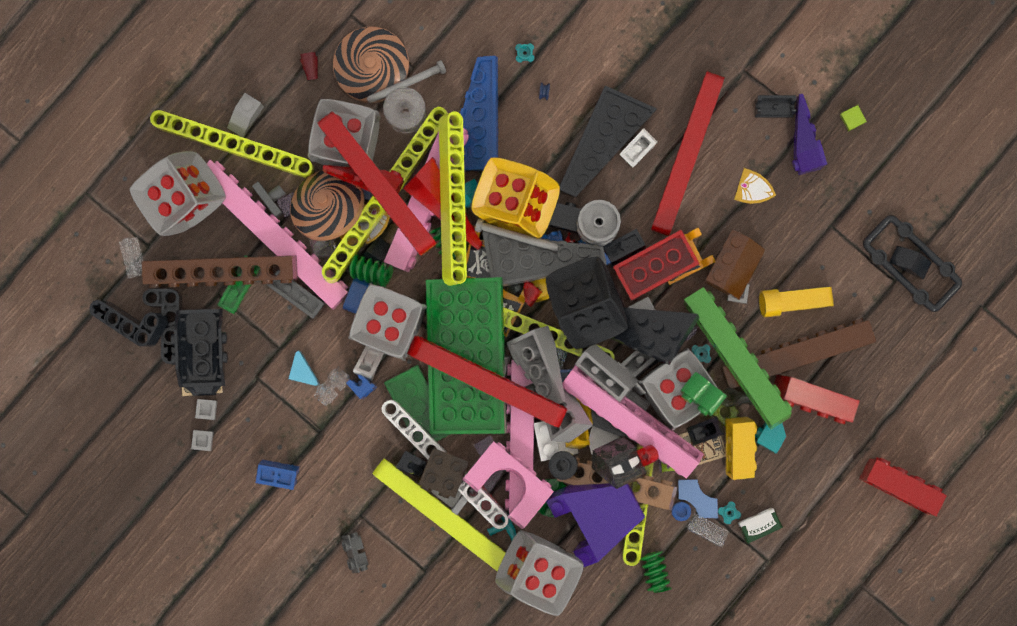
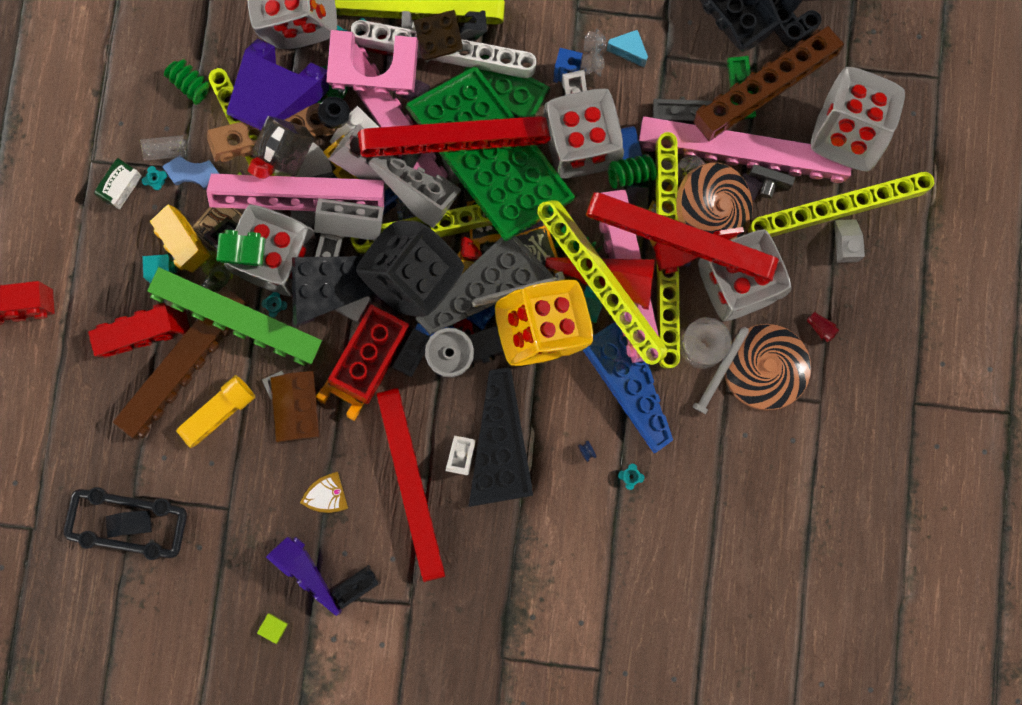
camera: 145 degrees right, 5 degrees down
(132, 256) = (855, 48): clear hinge -> none
(681, 511) = (200, 151): blue tile -> none

